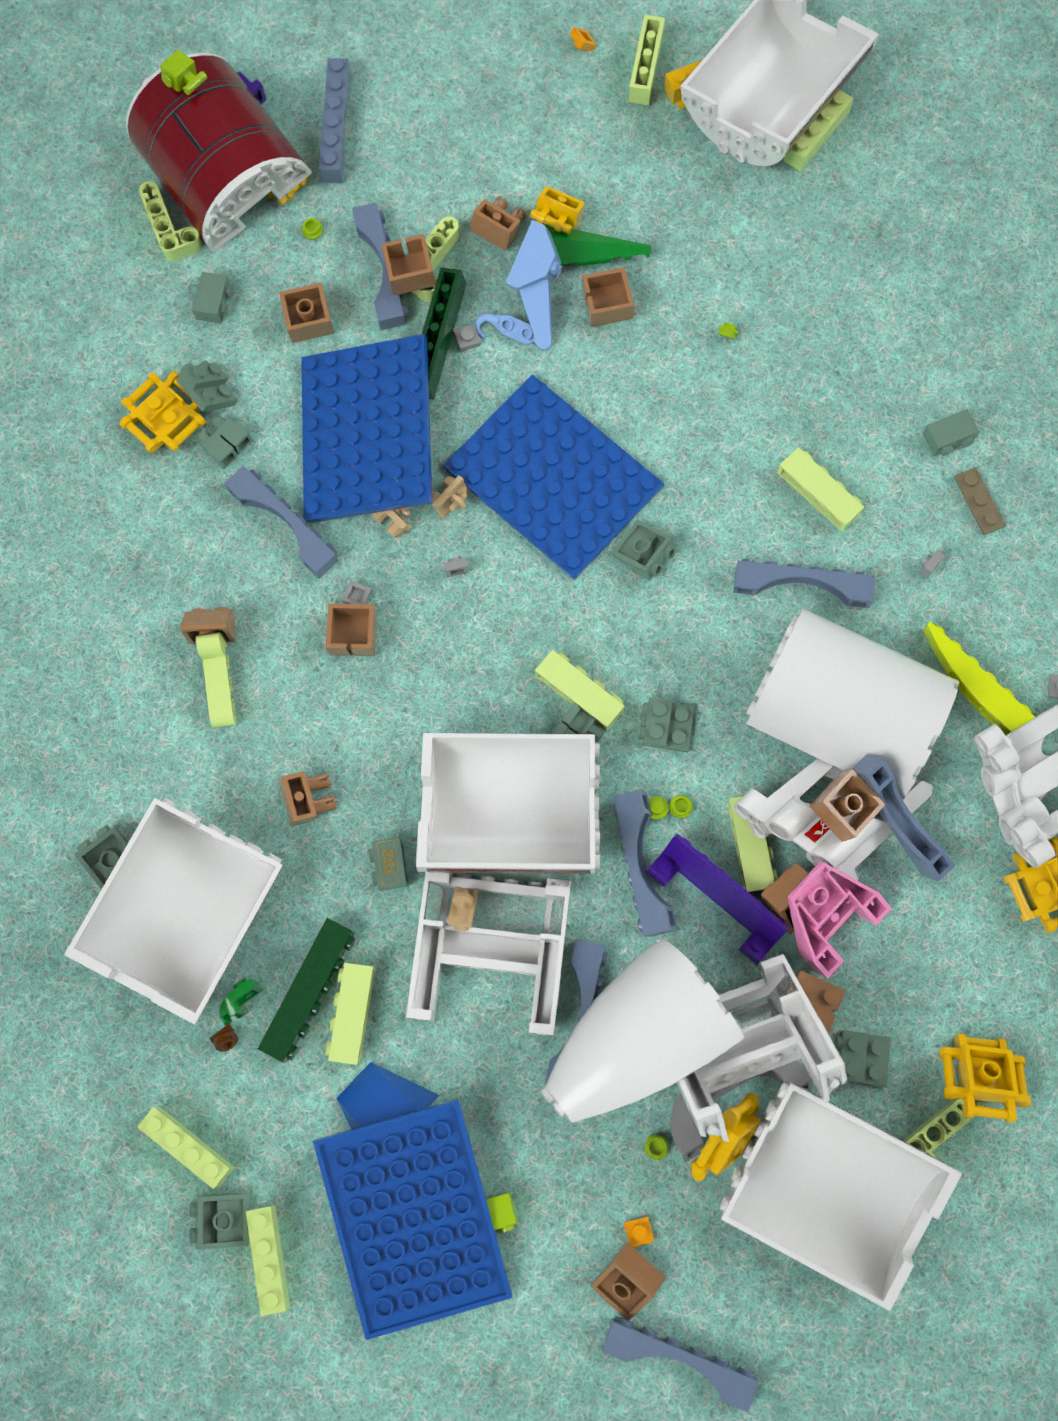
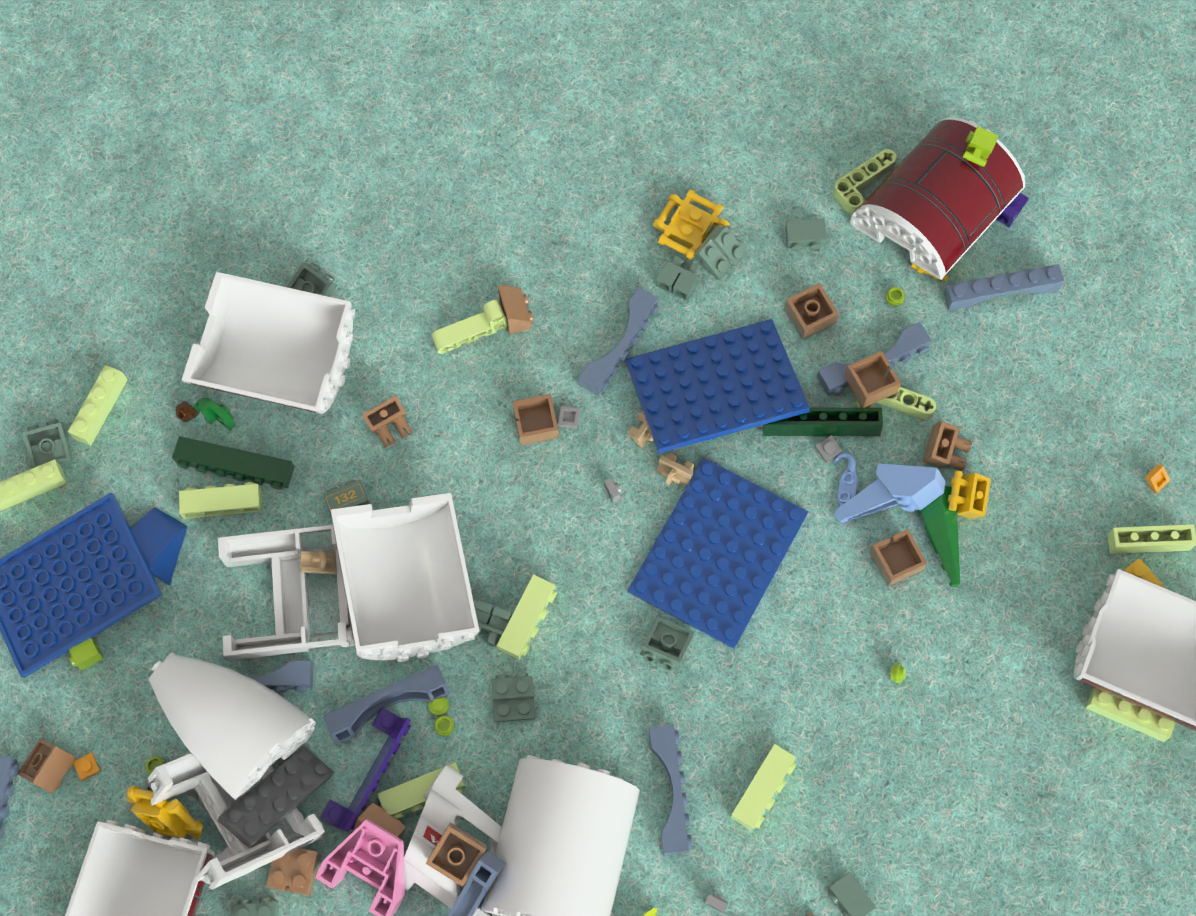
camera: 75 degrees right, 5 degrees down
(760, 1023) = (275, 797): none -> dark grey plate

